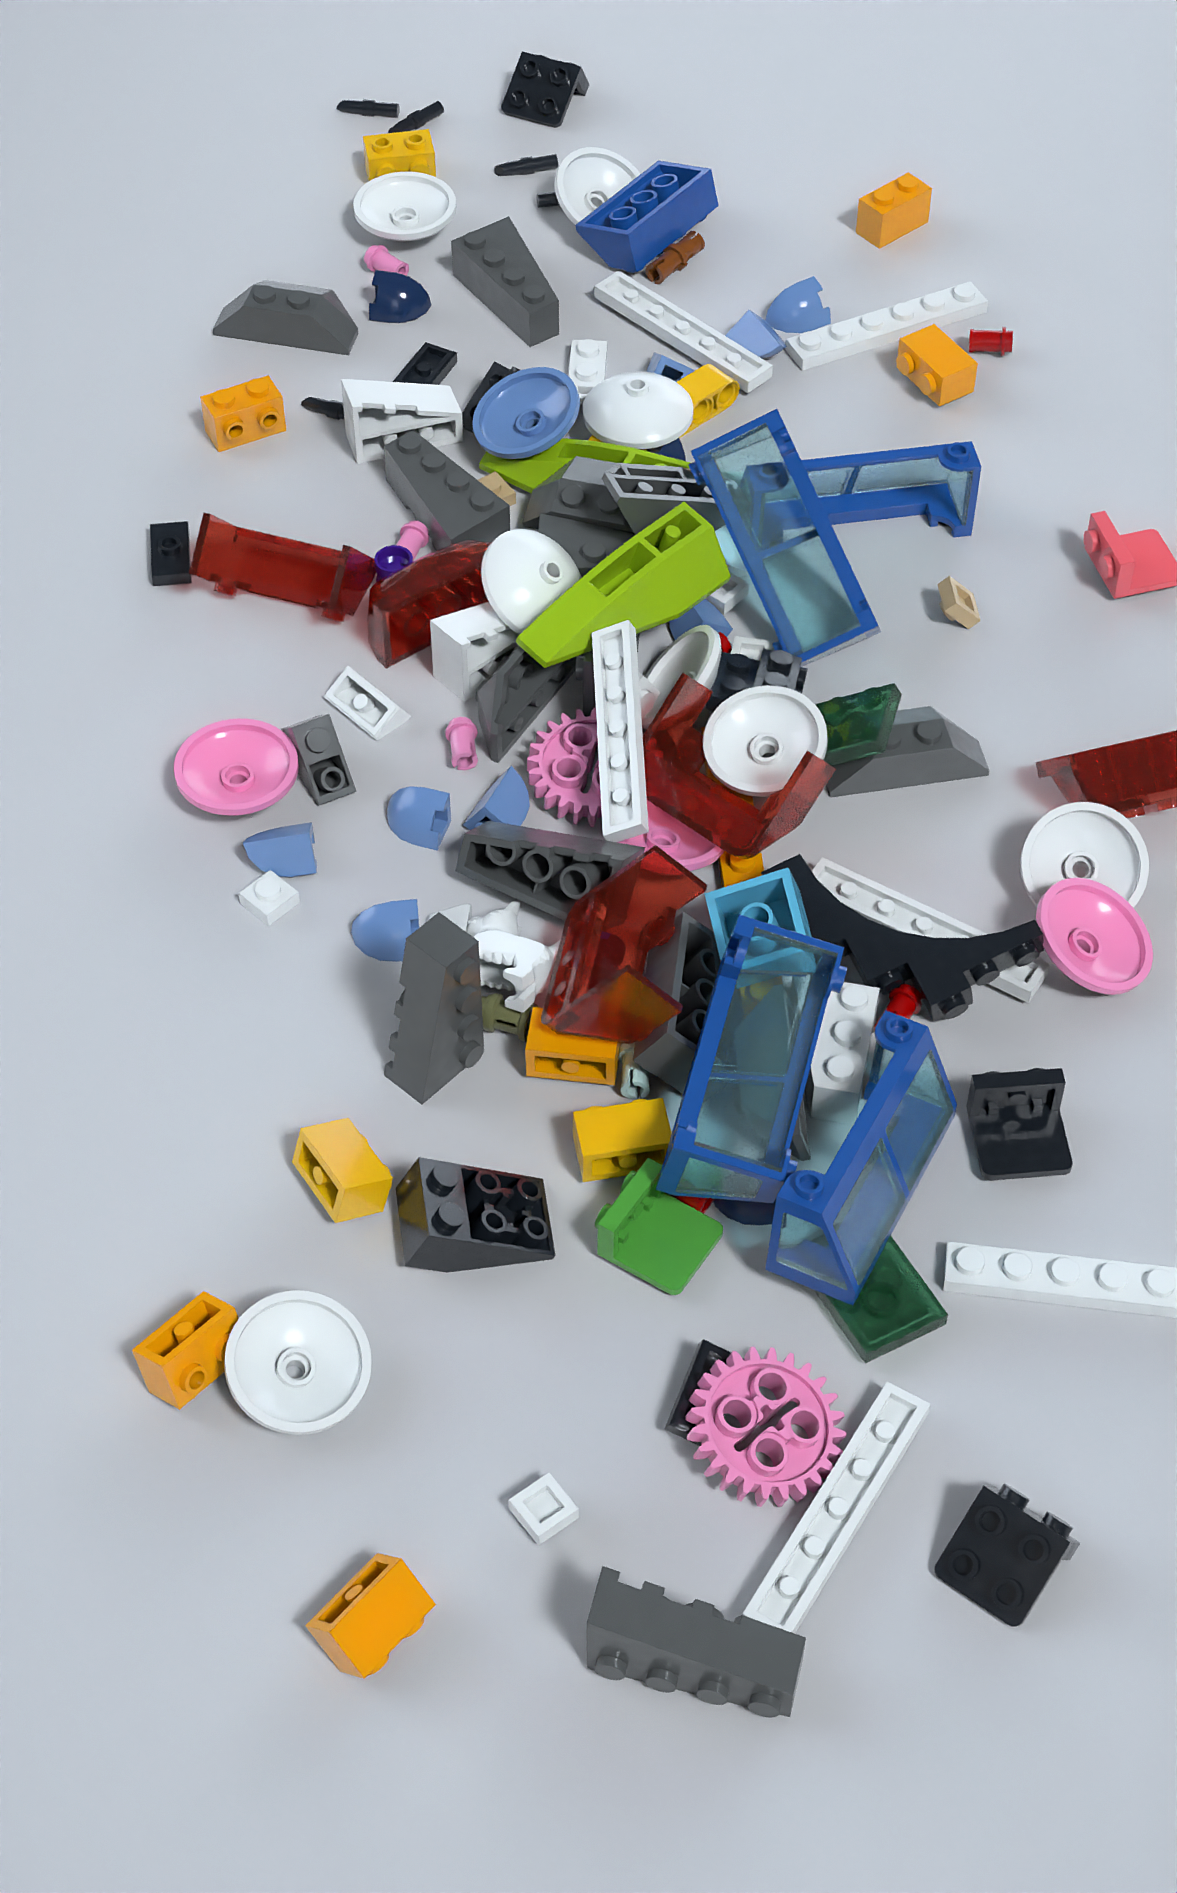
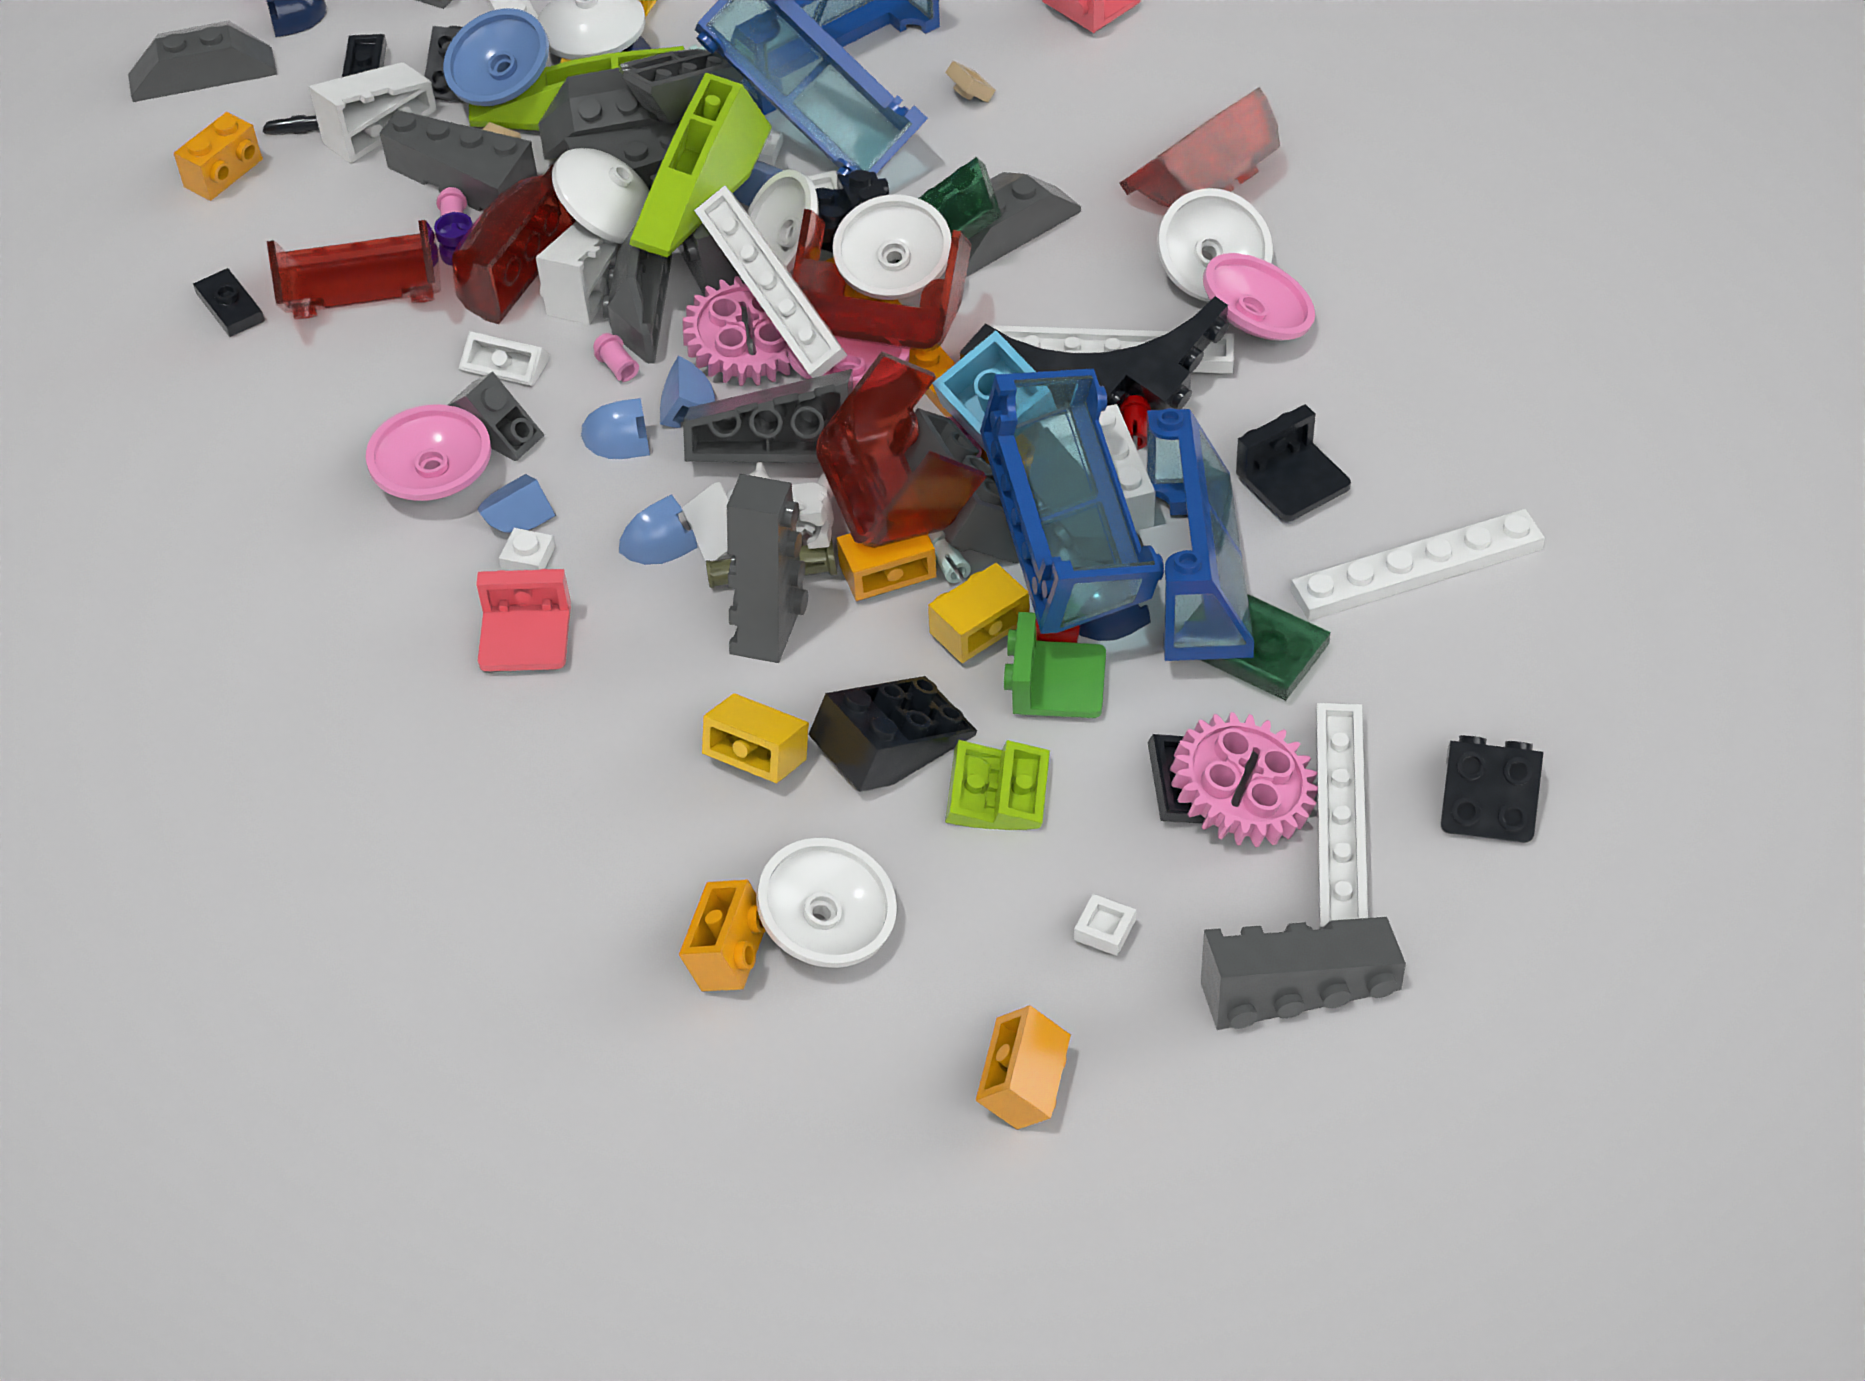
camera: 25 degrees left, 0 degrees up
(220, 963) = (523, 619): none -> coral bracket
(536, 1320) = (997, 786): none -> lime slope

